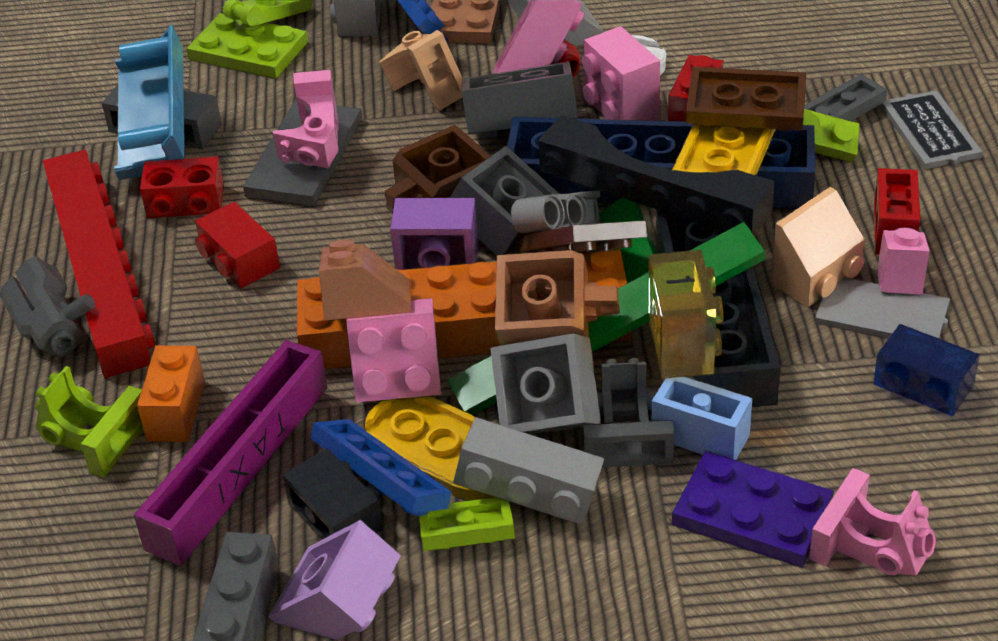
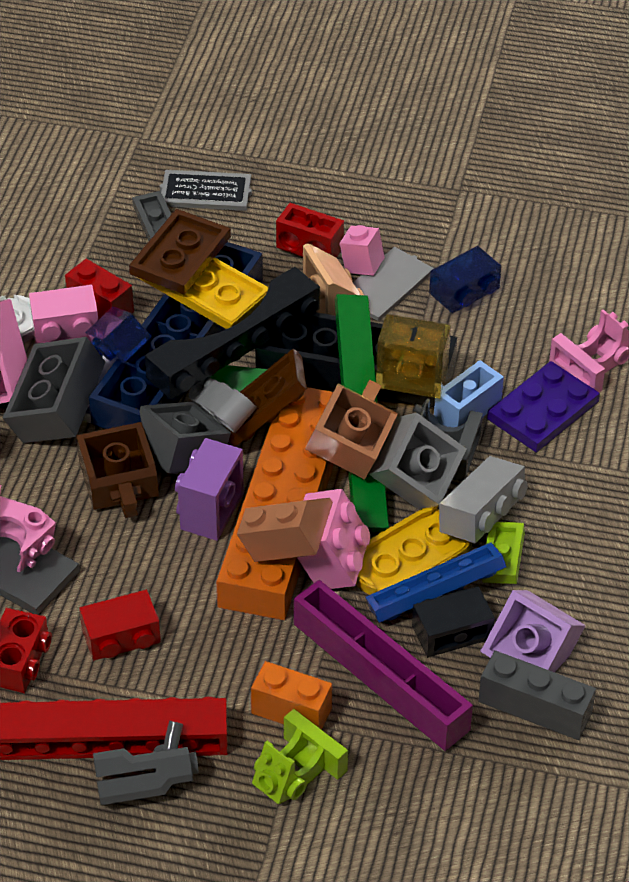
camera: 75 degrees left, 5 degrees up
(598, 98) = (117, 335): none -> clear blue brick

